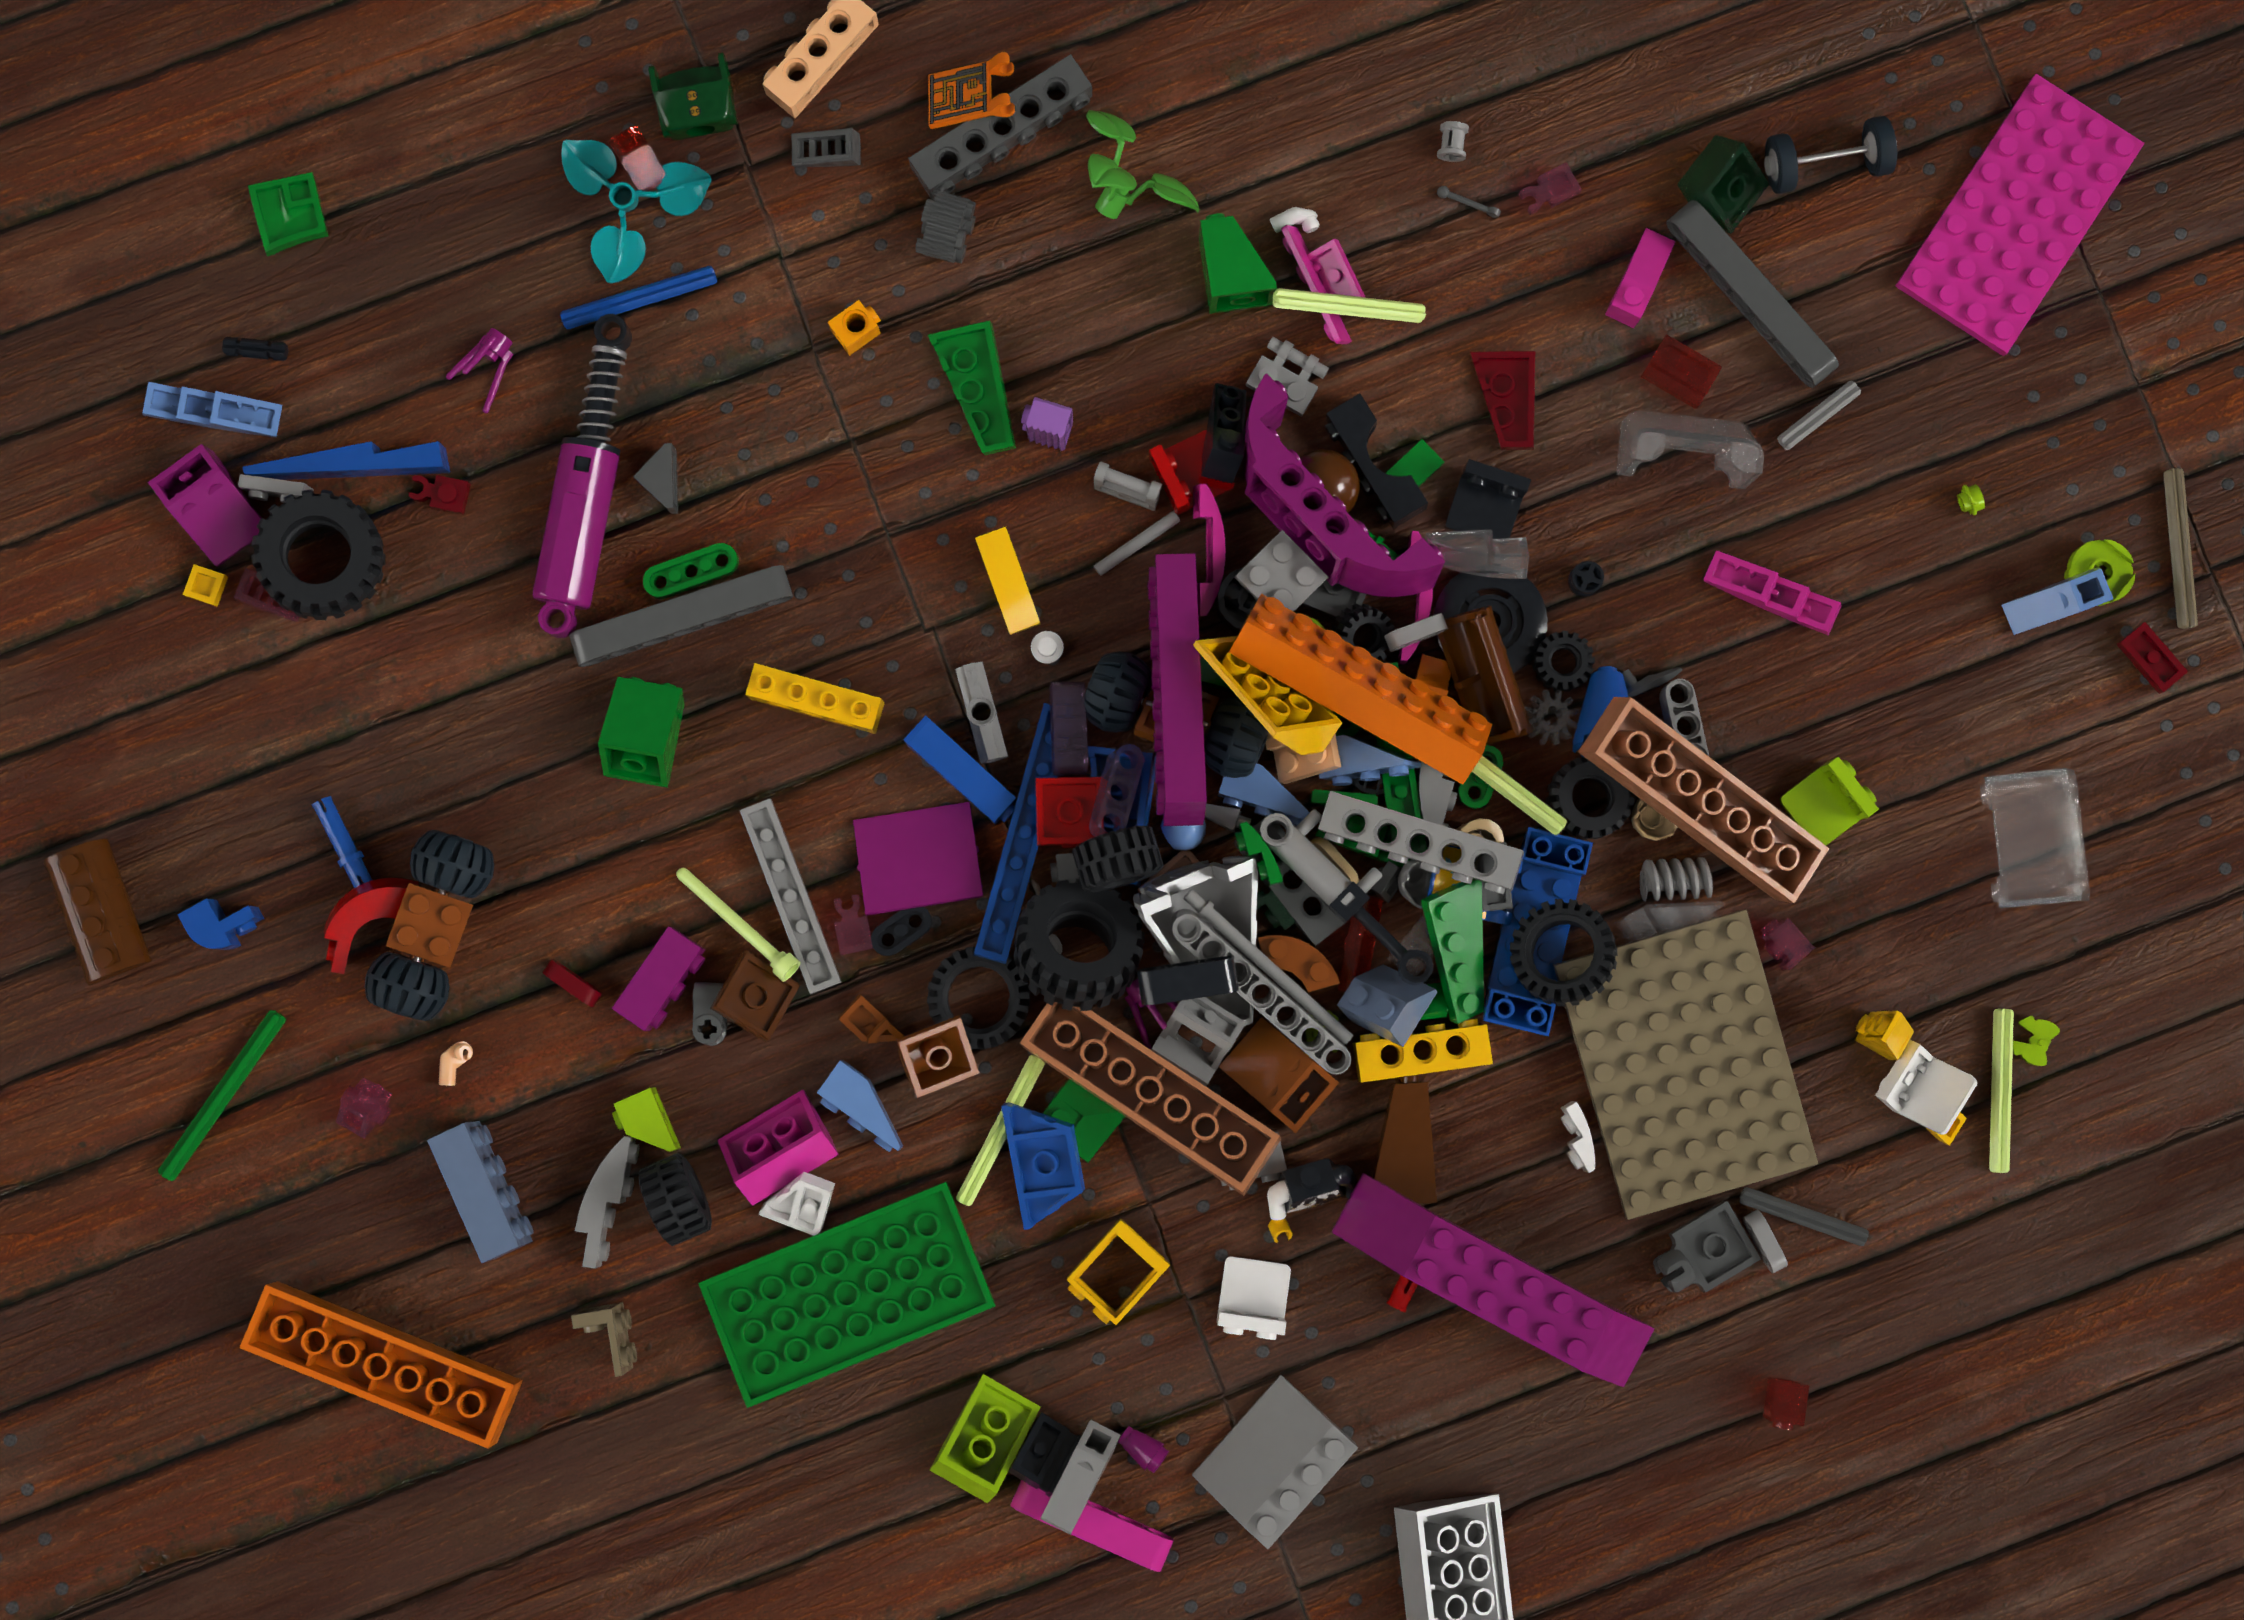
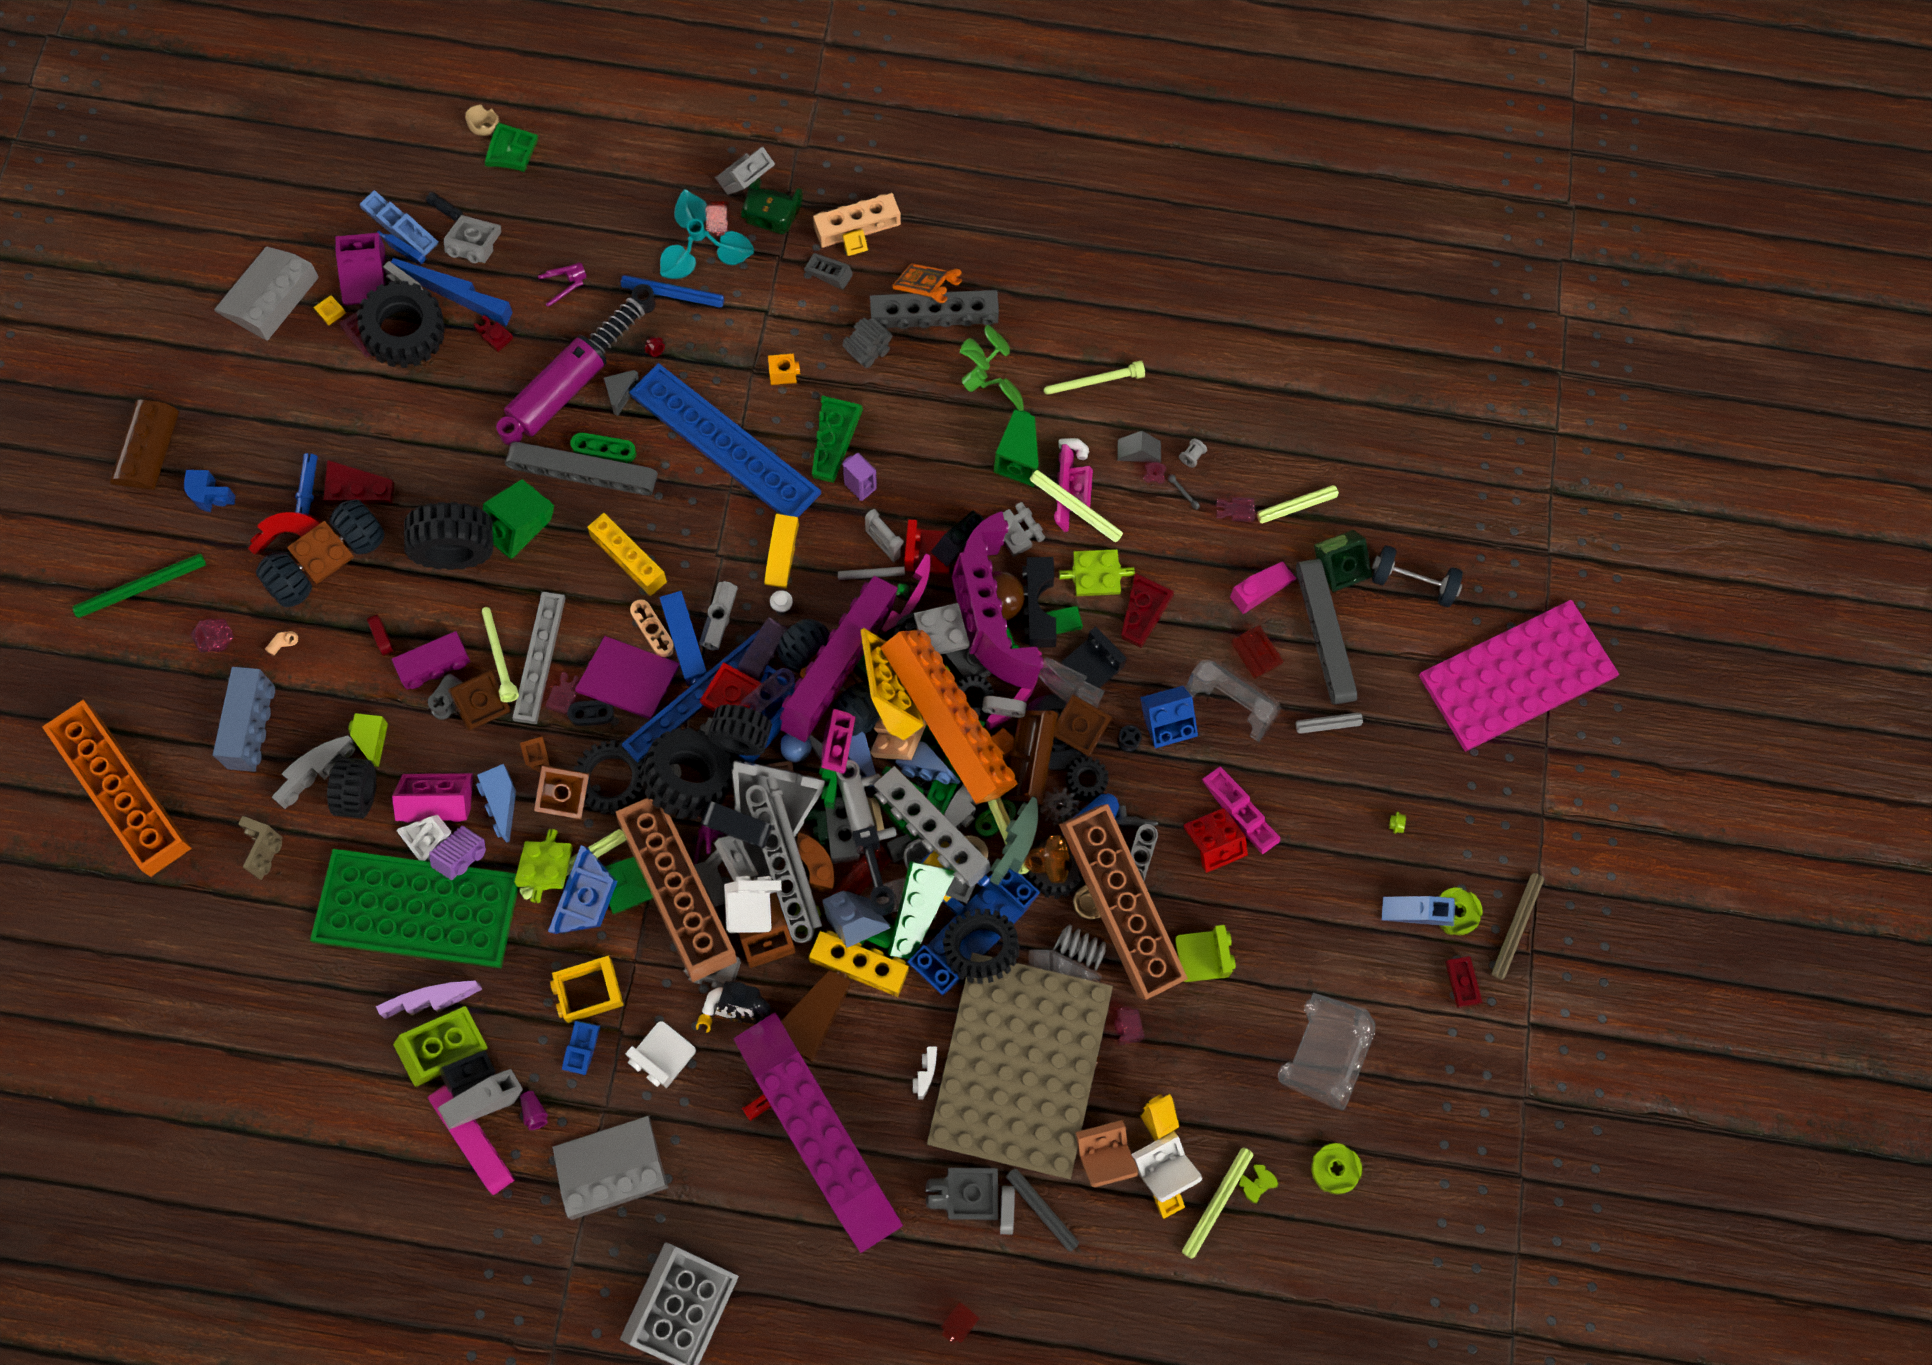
camera: 25 degrees right, 15 degrees down
(103, 606) = (268, 291): none -> light grey slope
(223, 194) = (481, 121): none -> tan hair
(241, 441) = (403, 248): none -> blue piece
(326, 376) = (471, 239): none -> light grey plate
(405, 805) = (348, 483): none -> dark red wing
(582, 812) = (448, 536): none -> black tyre
(632, 72) = (745, 171): none -> light grey window
(666, 390) = (654, 346): none -> dark red plate
(837, 88) = (854, 242): none -> yellow plate
(841, 473) = (725, 442): none -> blue plate
(856, 1201) = (457, 852): none -> medium lavender brick
(889, 758) = (652, 619): none -> light nougat beam
(943, 1384) = (437, 996): none -> lavender slope
(969, 1154) = (543, 865): none -> lime plate
(1151, 1342) = (581, 1047): none -> blue slope
(1191, 544) = (903, 590): none -> green hand
(1243, 802) = (837, 741): none -> dark pink slope
(1259, 1066) = (749, 904): none -> white bracket
(1313, 64) = (1135, 370): none -> yellowish green piece
(1378, 174) = (1139, 448): none -> dark grey slope
(1420, 188) = (1155, 467): none -> clear pink plate
(1421, 379) = (1096, 573): none -> lime plate
(1522, 598) = (1081, 725): none -> reddish brown tile
(1540, 795) = (1019, 841): none -> sand green slope
(1591, 799) = (1053, 859): none -> clear orange tile
(1619, 520) = (1169, 716): none -> blue slope
(1623, 136) = (1297, 504): none -> yellowish green axle
(1762, 646) = (1217, 839): none -> red bracket
(1847, 1113) = (1106, 1154): none -> nougat bracket
(2136, 973) = (1328, 1180): none -> lime plate

